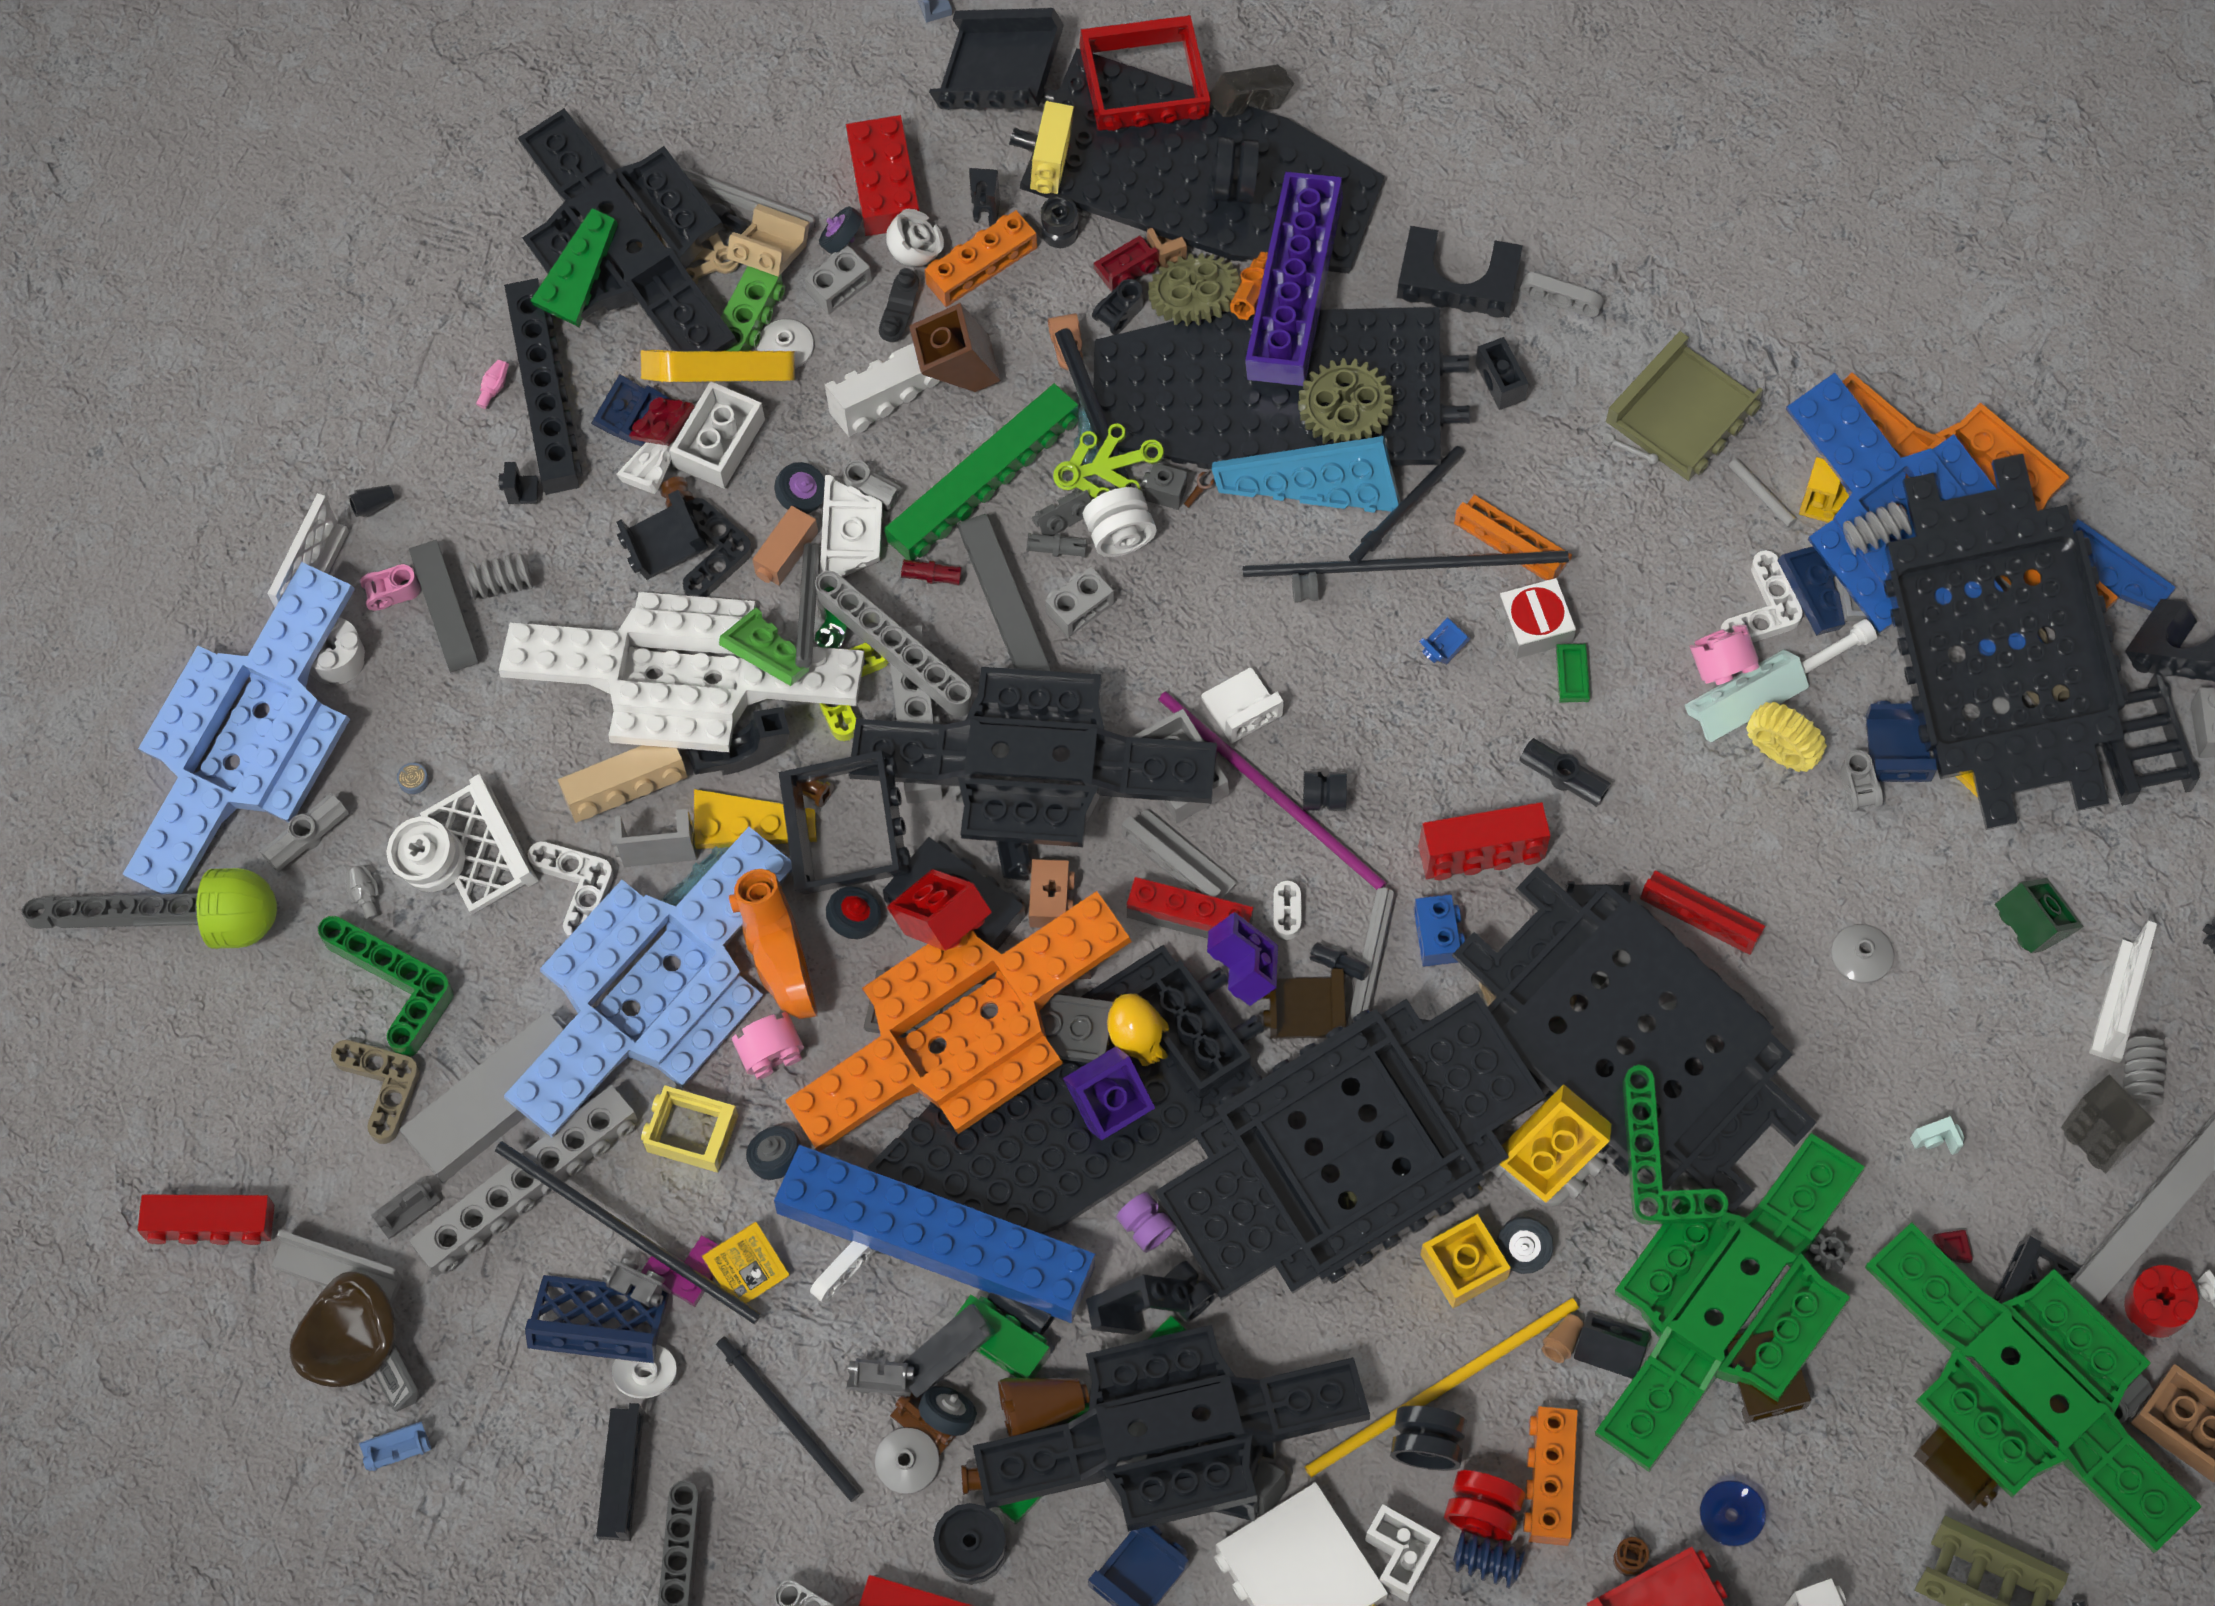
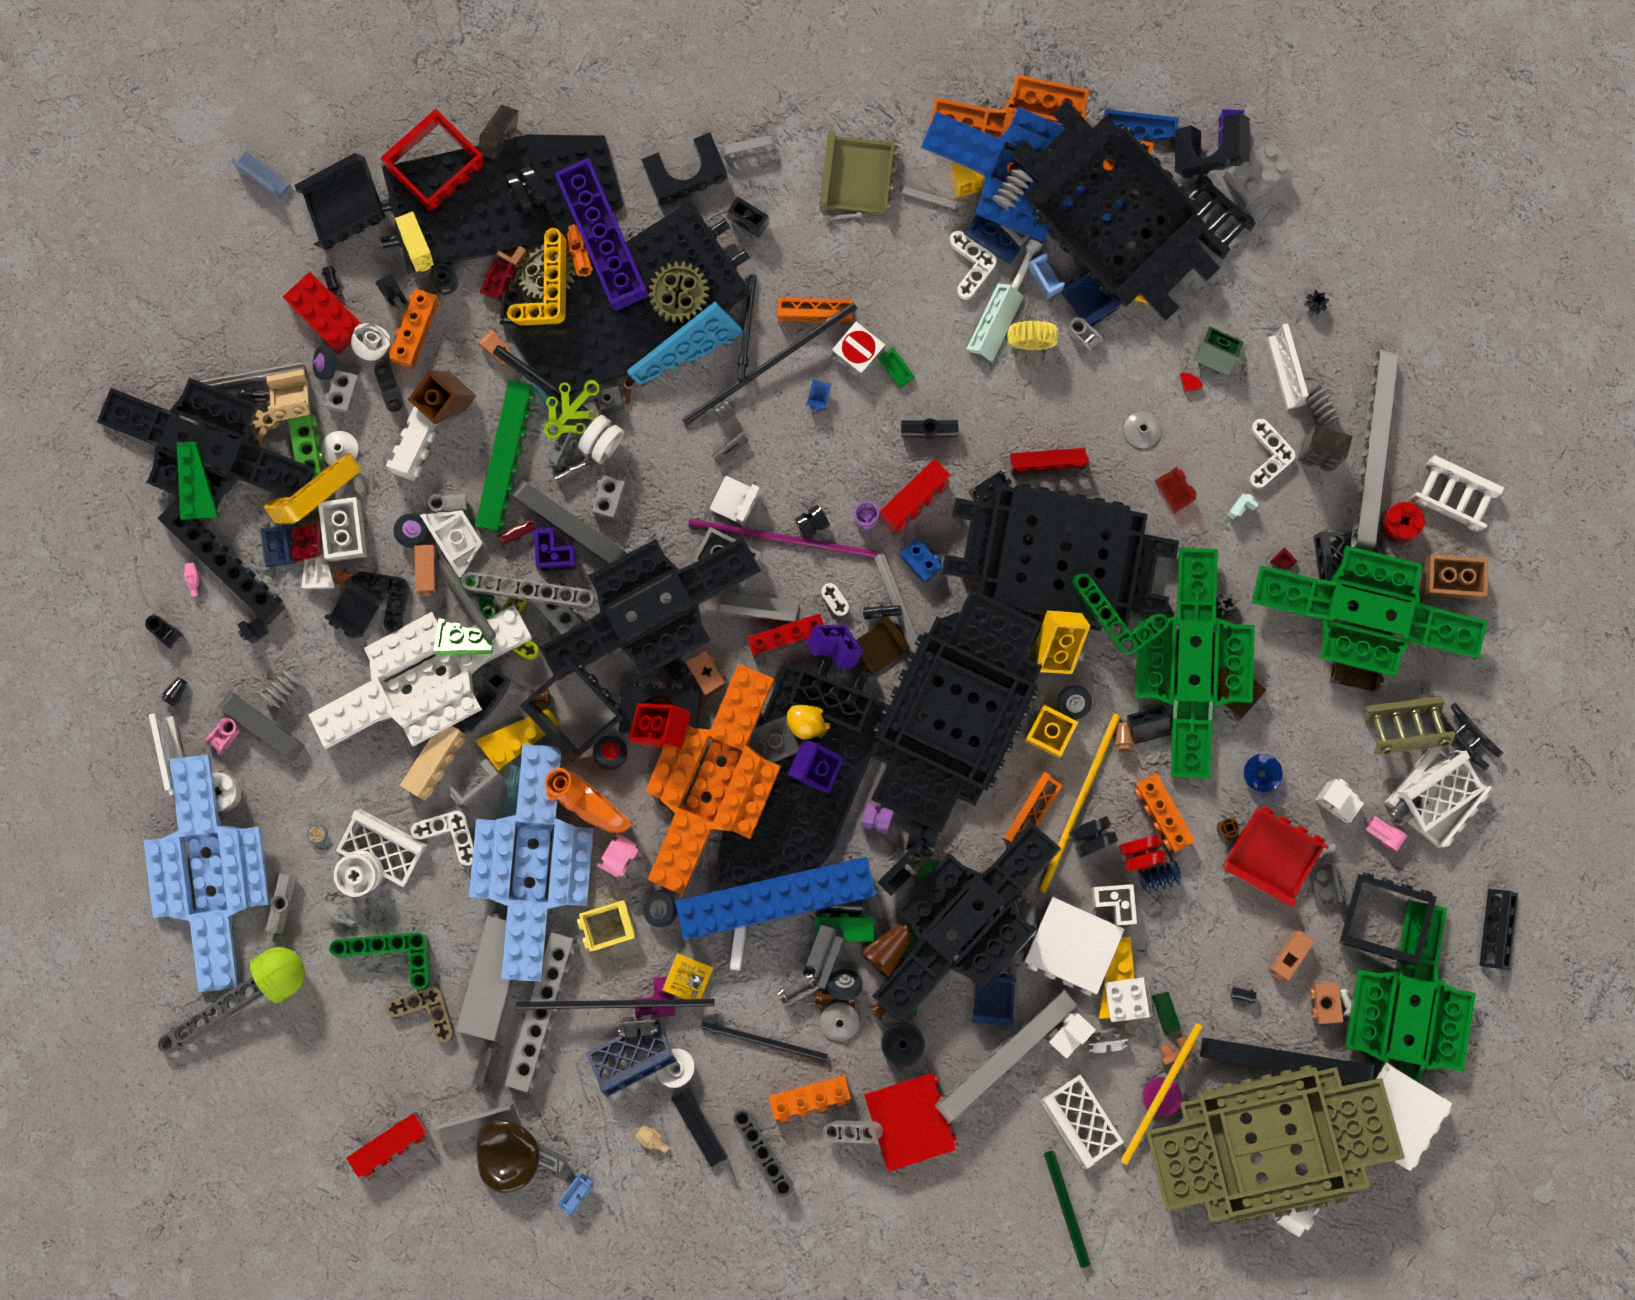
camera: 35 degrees left, 15 degrees up
(412, 423) = (165, 632): none -> black piece
(545, 1444) = (651, 1139): none -> tan piece
(794, 1533) = (809, 1097): none -> orange brick
(922, 137) = (330, 278): none -> black pin
(954, 623) = (549, 556): none -> dark purple brick
(1192, 298) = (550, 286): none -> yellow beam
(1301, 633) = (730, 447): none -> dark grey pin
(1374, 1337) = (1029, 803): none -> orange fence
(1402, 827) = (866, 515): none -> medium lavender wheel
(1724, 654) = (972, 308): bright pink brick -> none
(1855, 677) = (1045, 276): none -> light blue panel
(1857, 1057) = (1176, 489): none -> clear red bracket
(1971, 932) = (1190, 382): none -> red tile
(2029, 1105) = (1276, 457): none -> white beam

